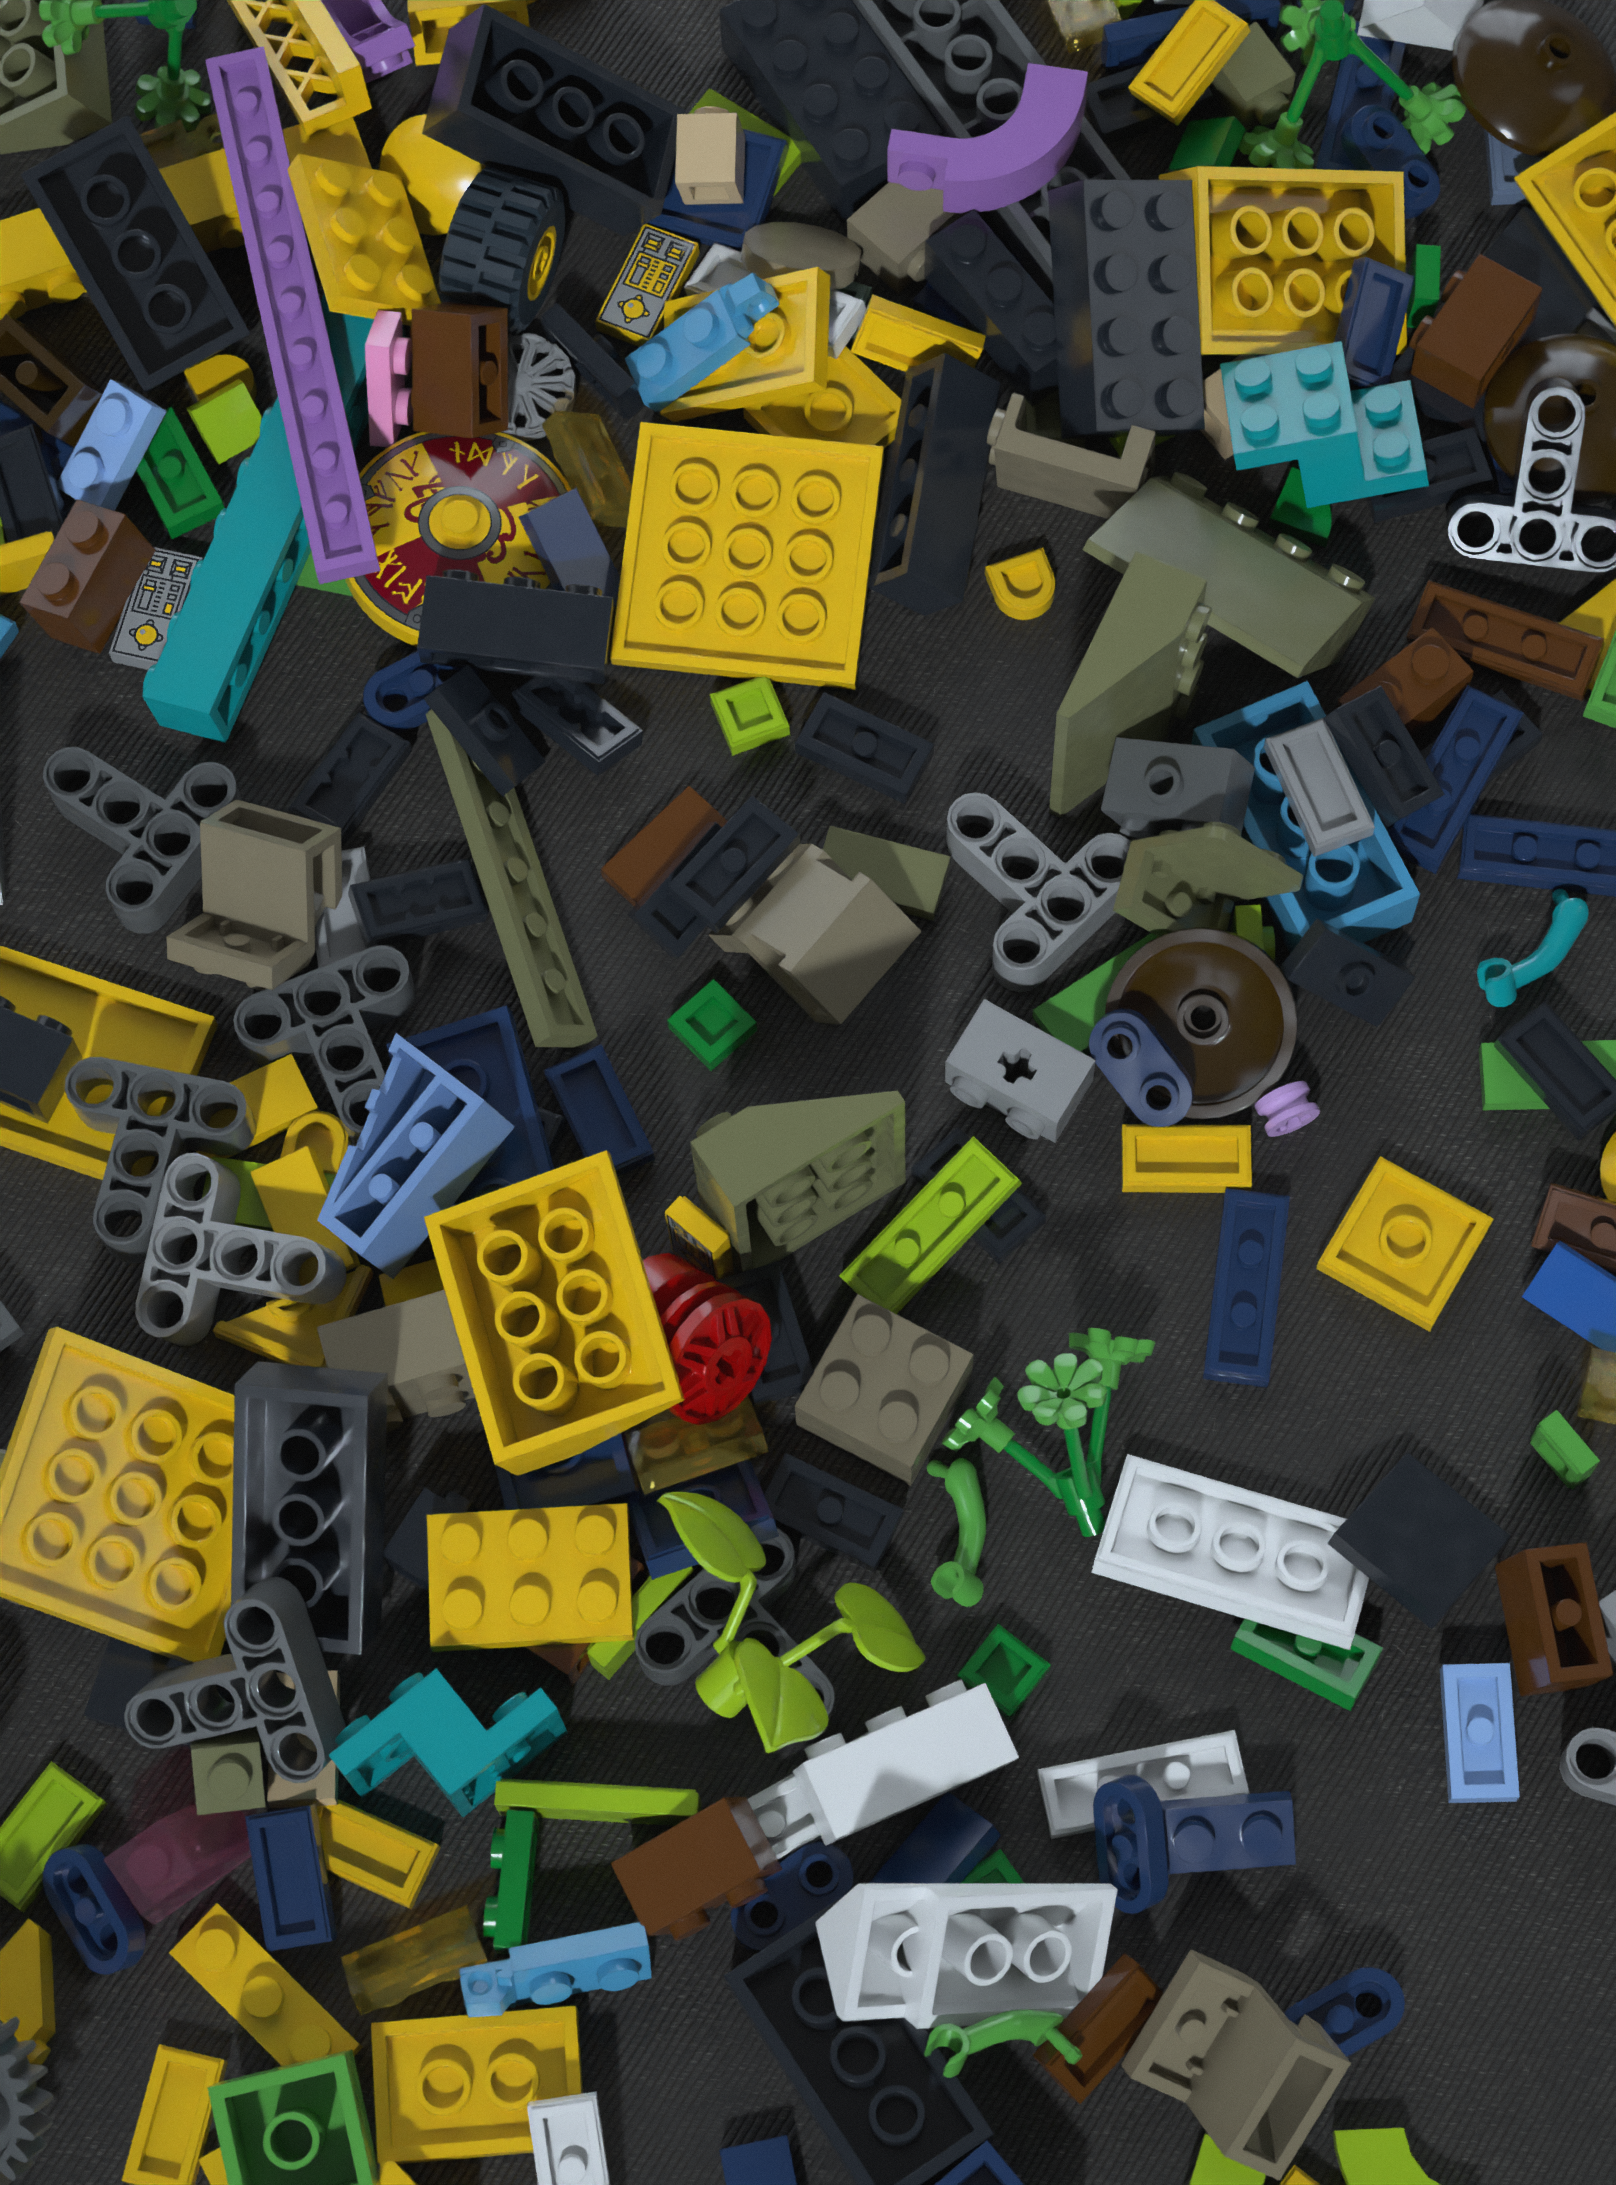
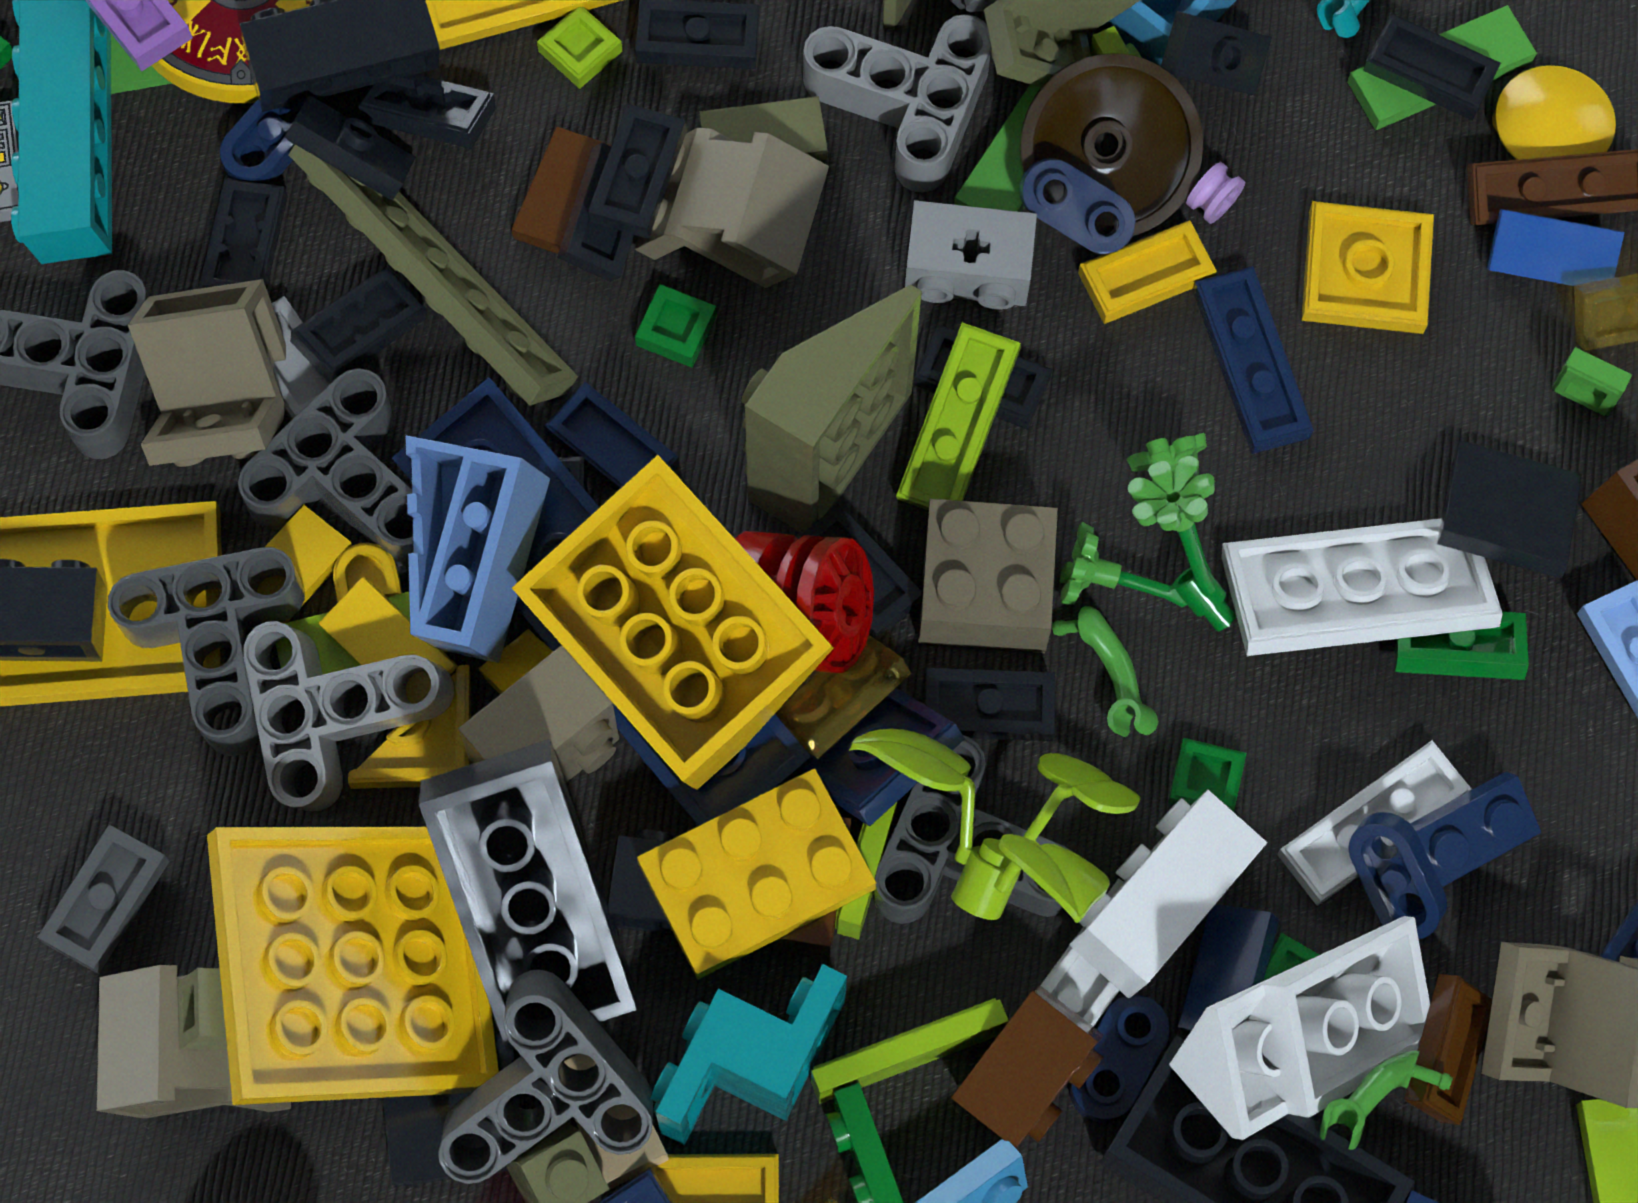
camera: 30 degrees left, 0 degrees up
(699, 1238) = (763, 506): yellow tile -> none

